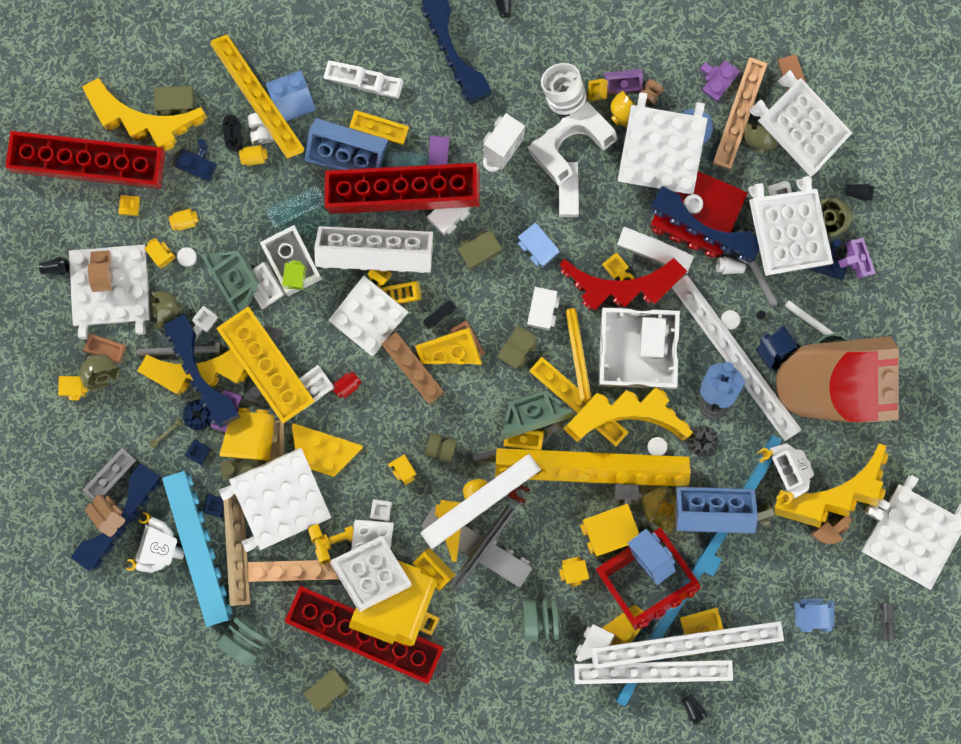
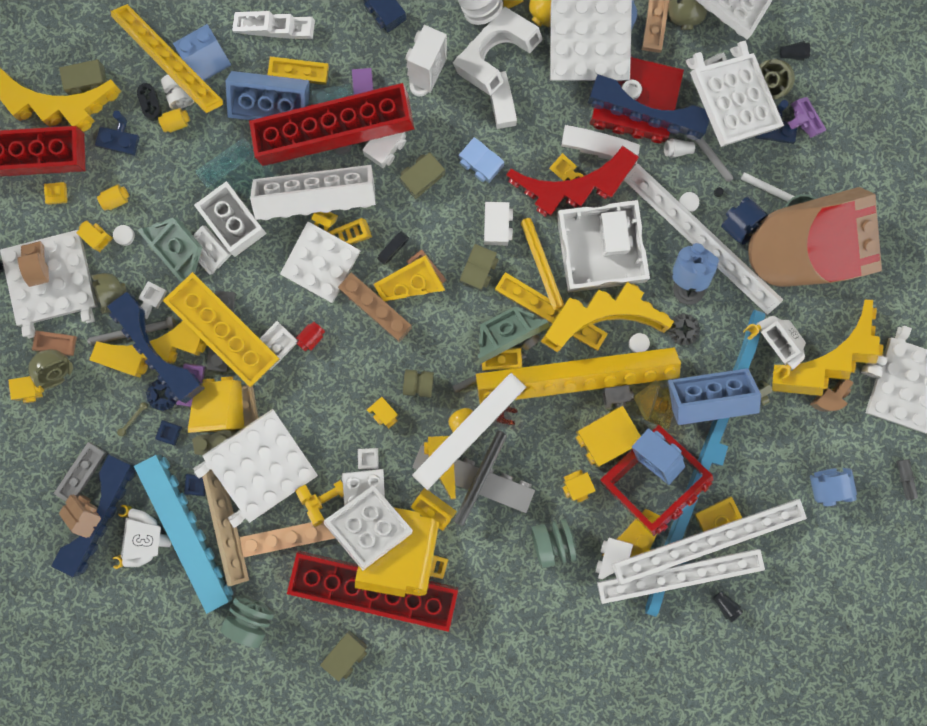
camera: 15 degrees left, 0 degrees up
(294, 275) = (234, 231): lime brick -> none
(323, 451) = (298, 409): yellow wing -> none

